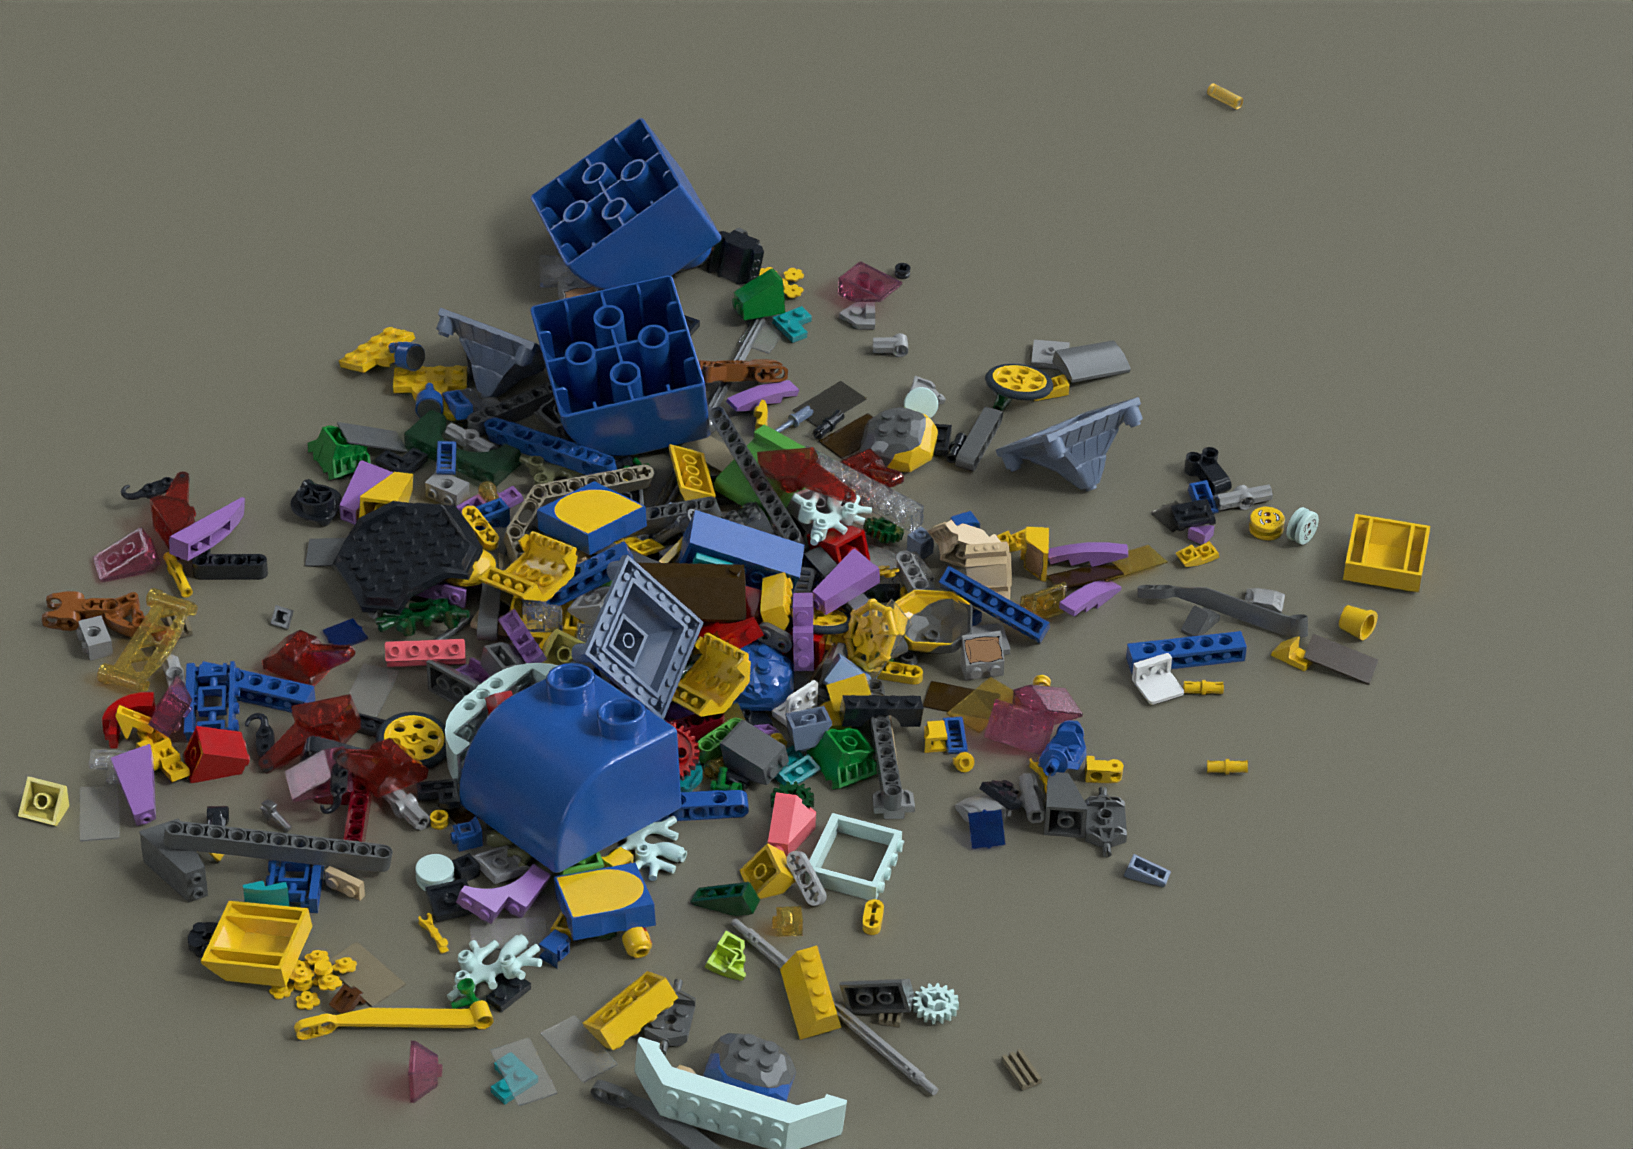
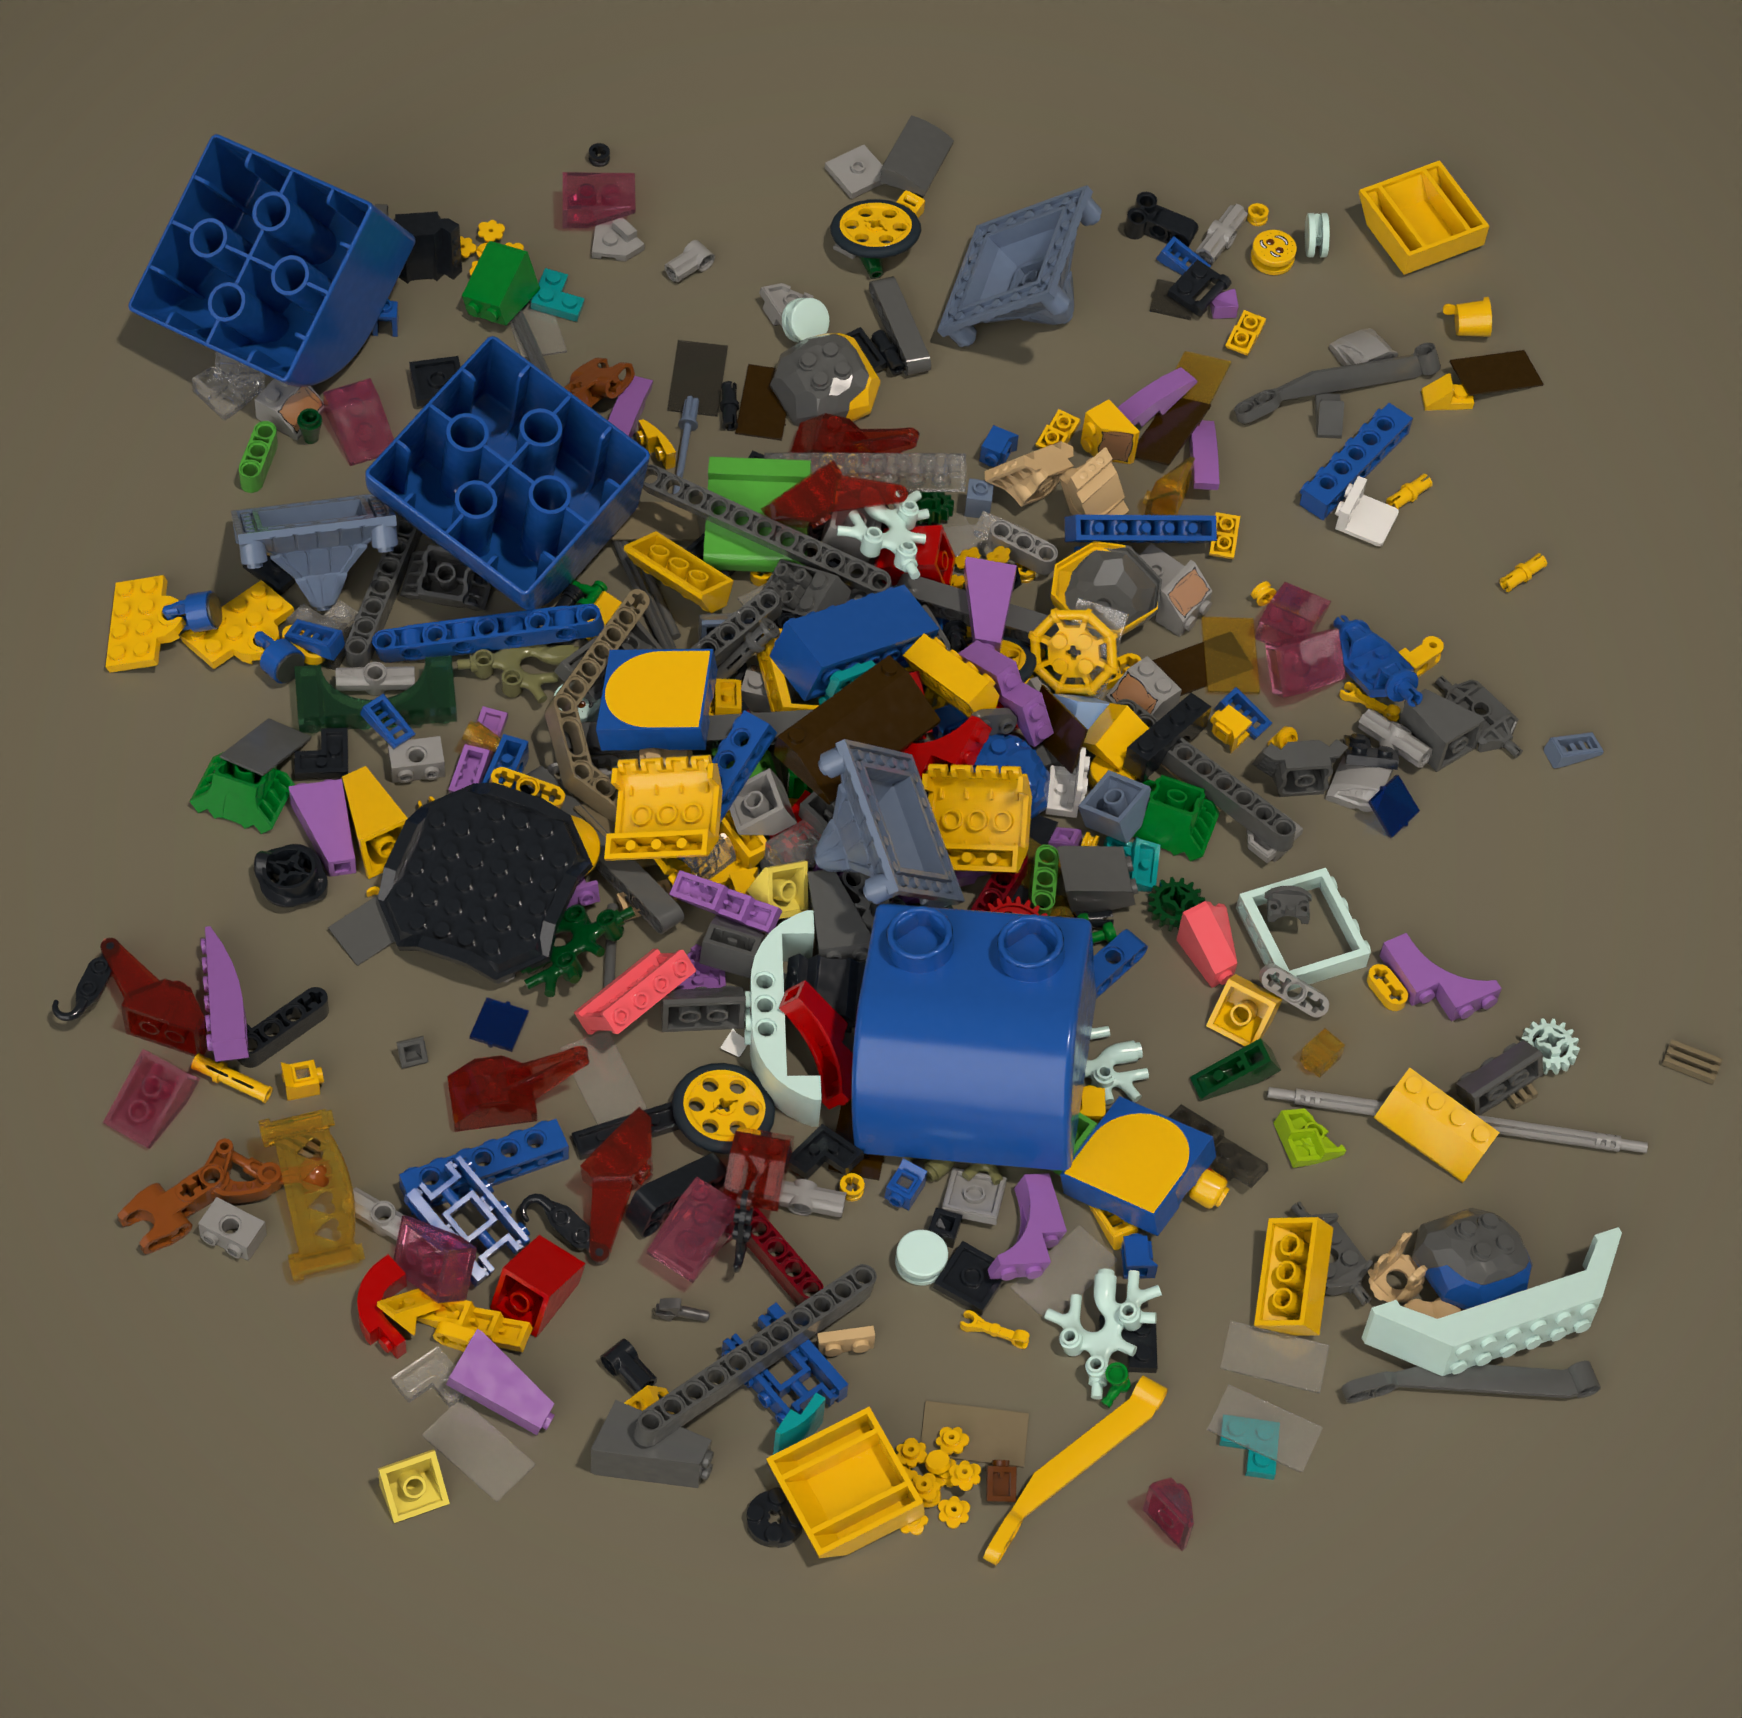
camera: 45 degrees left, 15 degrees up
(209, 594) = (301, 1079): none -> yellow window
(521, 312) = (258, 456): none -> bright green beam
(666, 925) = (1230, 1158): none -> clear smoke slope
(684, 281) = (389, 313): none -> blue window
(692, 1045) = (1396, 1261): none -> tan piece
(856, 832) = (1288, 902): none -> dark grey piece
(898, 926) = (1425, 980): none -> medium lavender arch
(903, 682) = (1147, 687): none -> light grey slope
(952, 775) = (1300, 766): none -> dark grey slope
(1054, 646) = (1227, 534): none -> yellow slope
(1282, 501) = (1257, 214): none -> yellow bush

